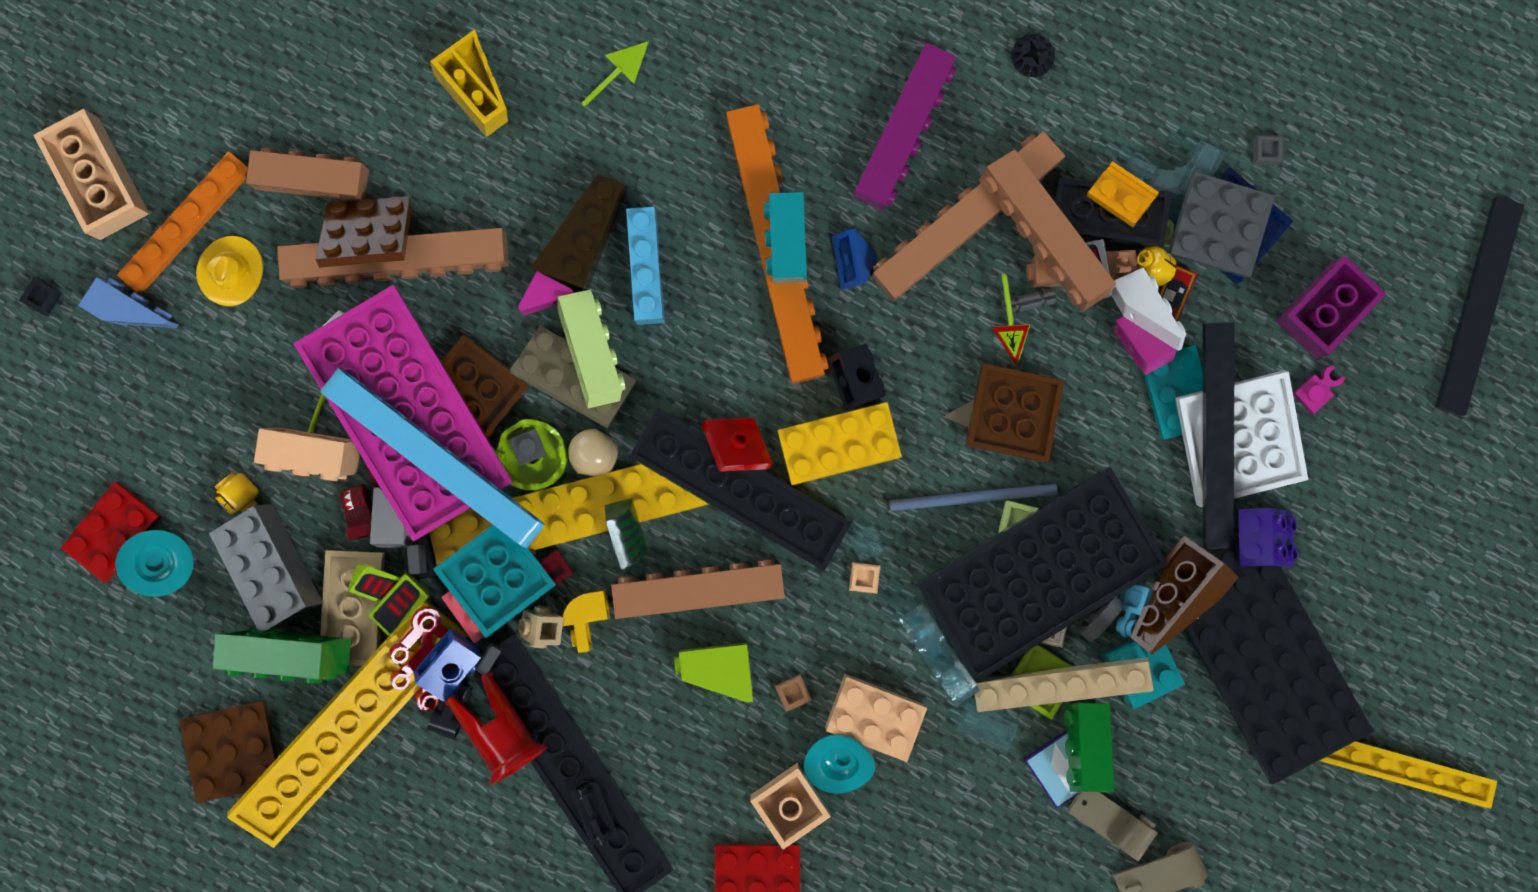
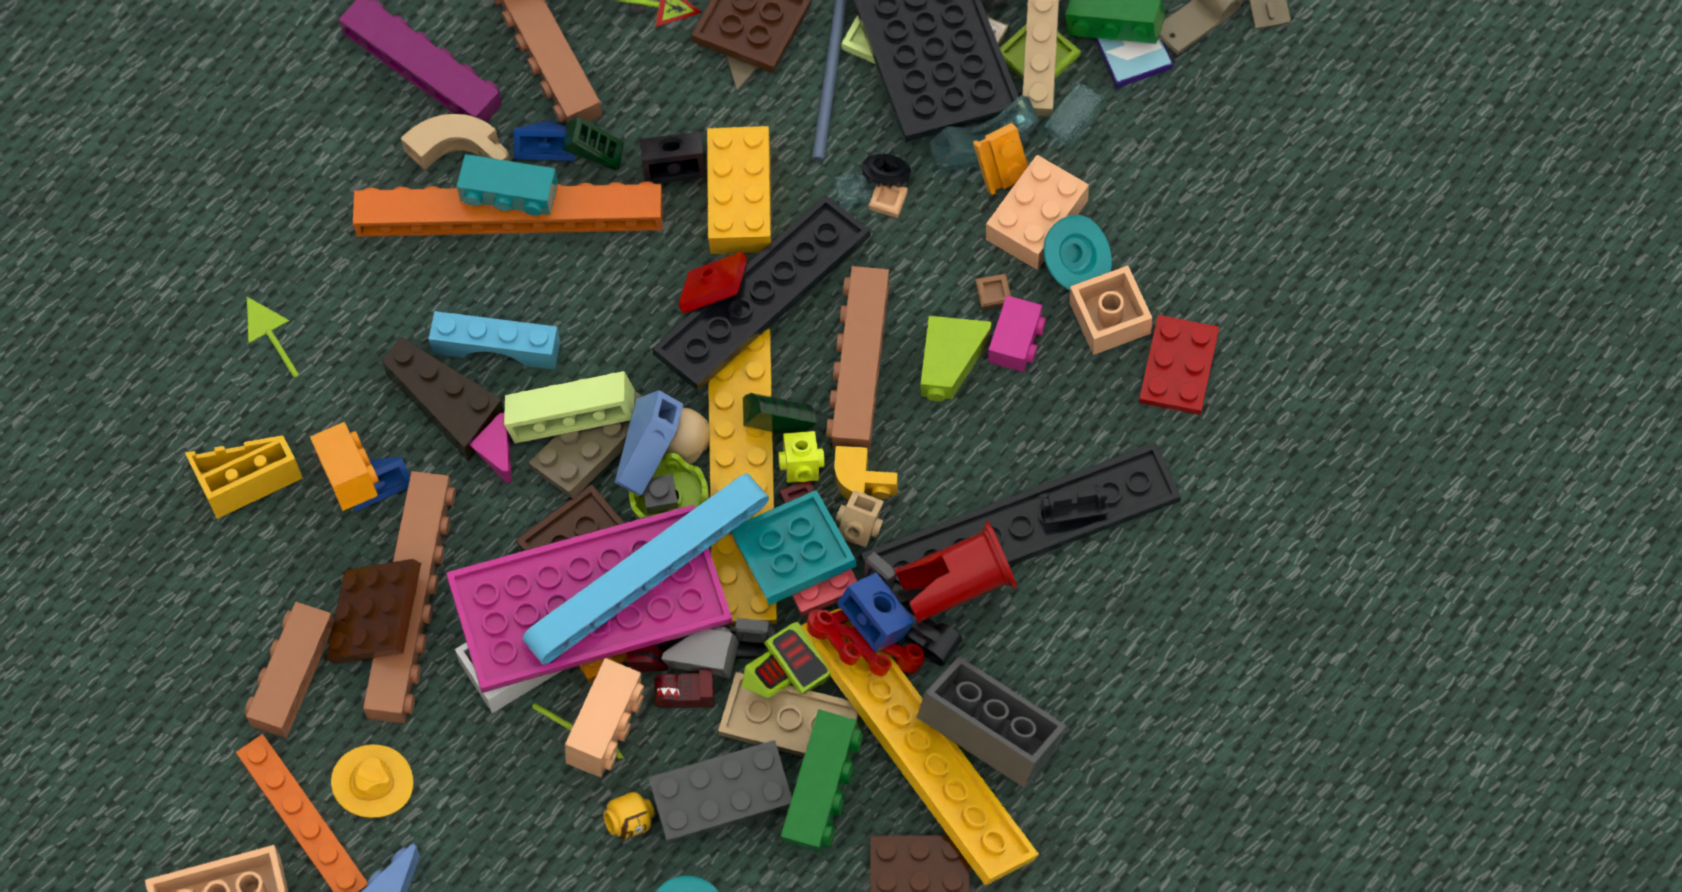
camera: 70 degrees left, 20 degrees down
(373, 786) = (991, 721): none -> dark grey brick
(491, 169) = (345, 465): none -> light orange brick
(497, 199) = (392, 479): none -> blue slope
(563, 426) = (647, 439): none -> medium blue slope
(599, 562) = (804, 463): none -> neon yellow brick
(752, 724) = (1015, 334): none -> dark pink brick
(835, 164) = (452, 133): none -> tan arch
(849, 284) = (573, 144): none -> dark green slope
(896, 576) = (897, 170): none -> black gear
(918, 676) = (1001, 158): none -> light orange plate

